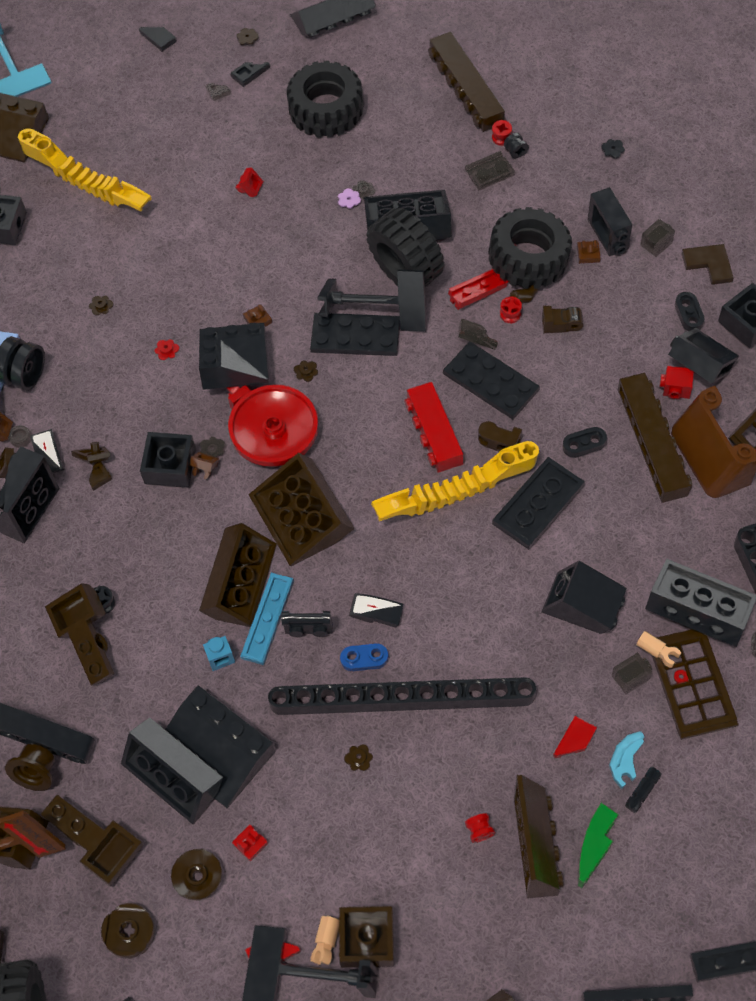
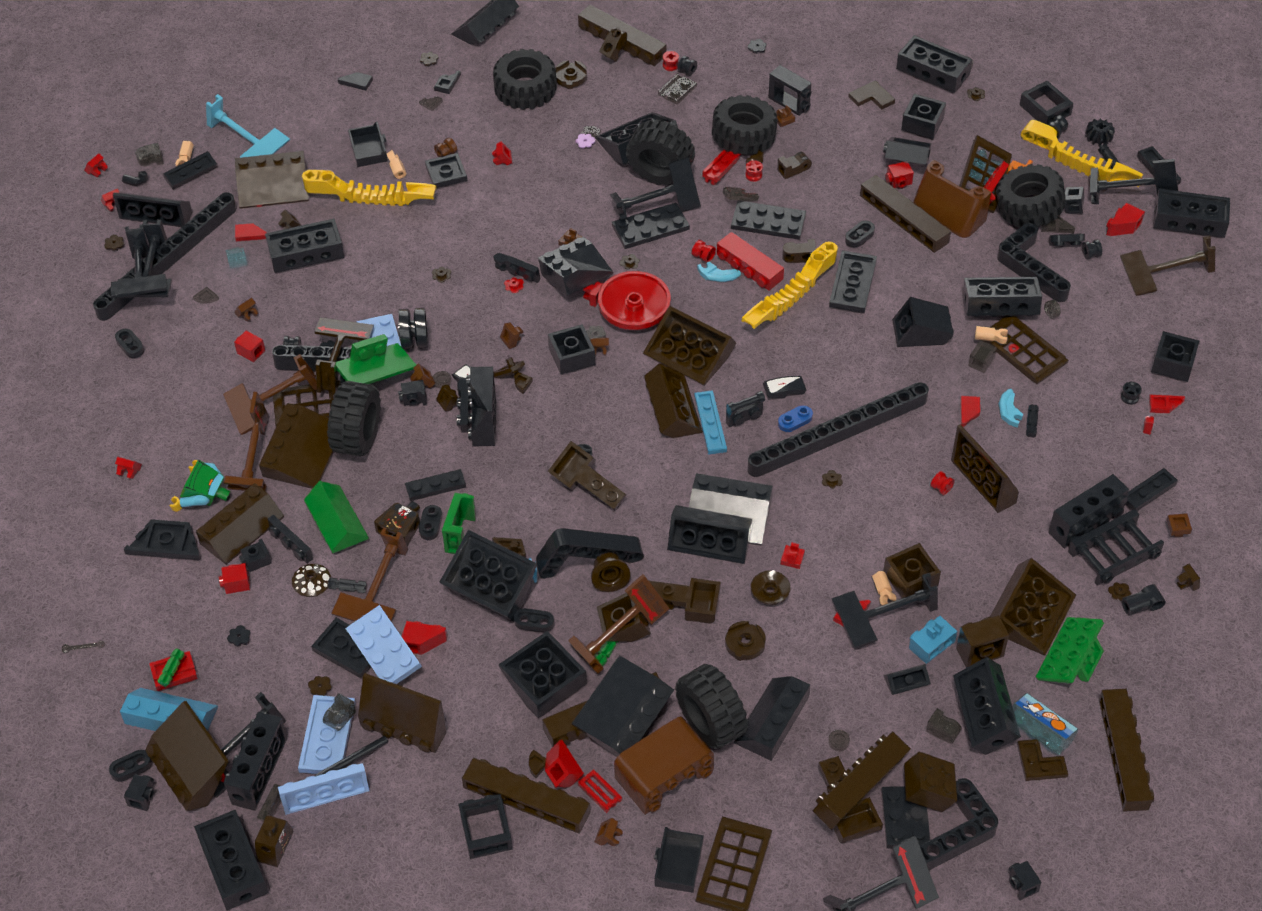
camera: 30 degrees left, 10 degrees down
(120, 119) = (368, 145): none -> black container
(121, 413) = (510, 335): none -> reddish brown tile
(133, 154) = (396, 165): none -> light nougat bar
(176, 329) = (516, 266): none -> black hinge
(179, 180) = (446, 170): none -> black plate
(190, 153) = (445, 148): none -> reddish brown wheel
(216, 649) = (690, 450): dark azure brick -> none
(385, 118) = (573, 80): none -> dark brown plate
(389, 390) = (704, 251): none -> red wheel
(389, 427) = (714, 274): none -> medium azure piece
(446, 89) = (613, 43): none -> dark brown leg
(595, 843) = (1022, 461): green slope -> none
(657, 237) = (827, 91): clear smoke brick -> none
(668, 946) = (1089, 510): none -> black brick
(690, 313) = (880, 131): black plate -> none

